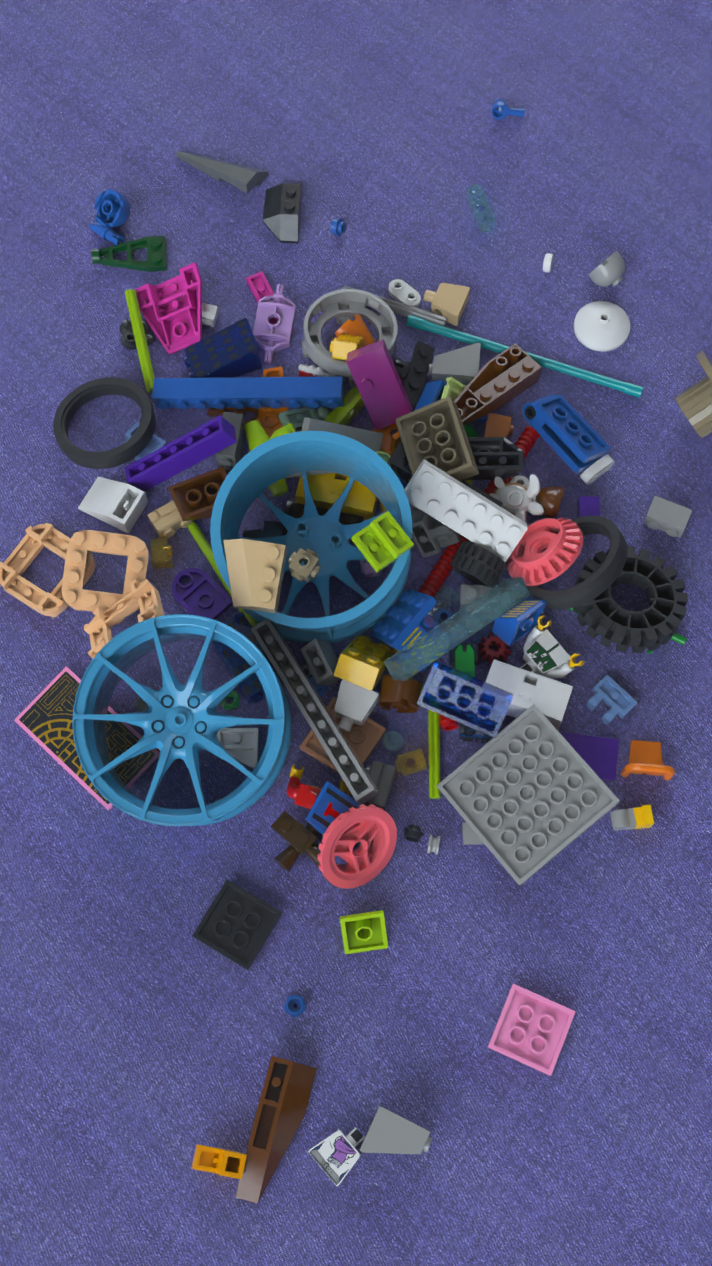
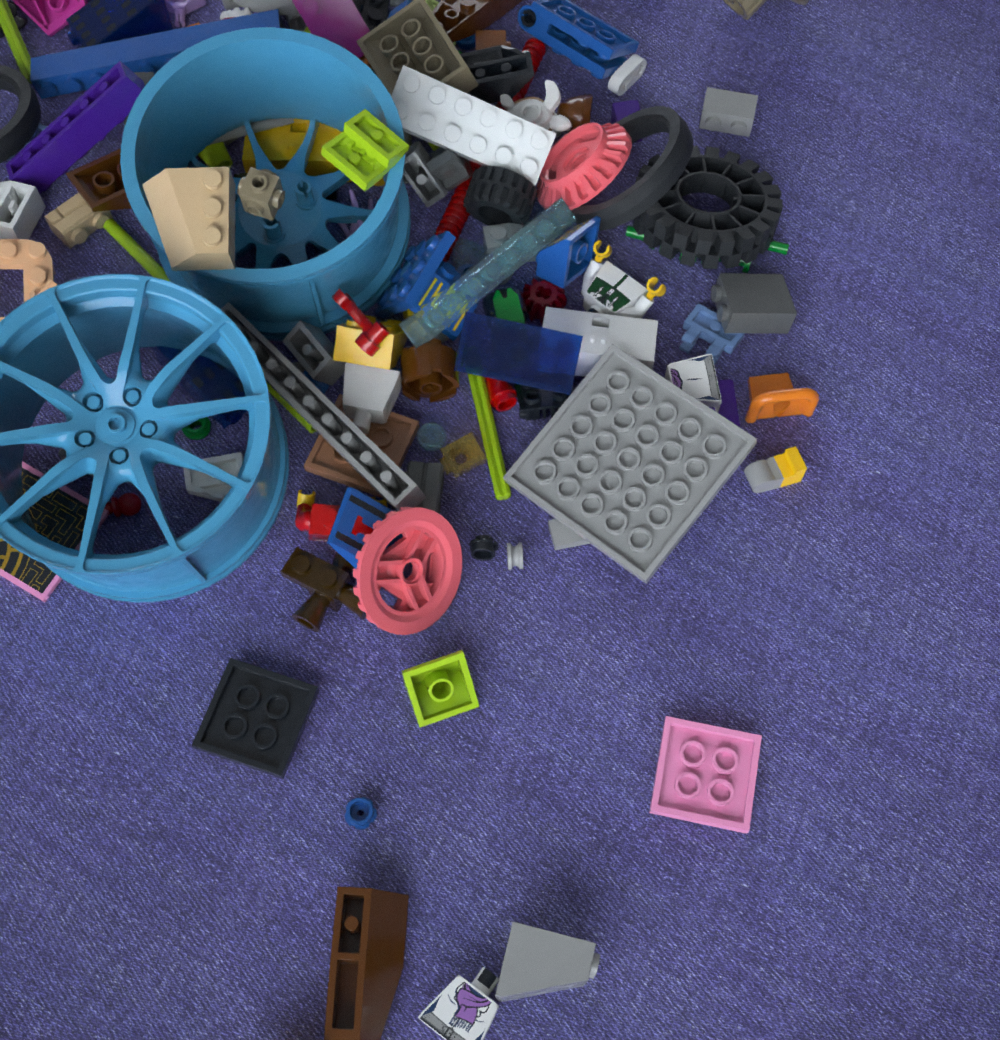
camera: 15 degrees left, 5 degrees down
(161, 553) = (71, 261): clear yellow brick -> none
(364, 666) = (372, 333): none -> red brick
(588, 740) = (697, 378): none -> white torso
(647, 684) = (753, 303): none -> dark grey brick

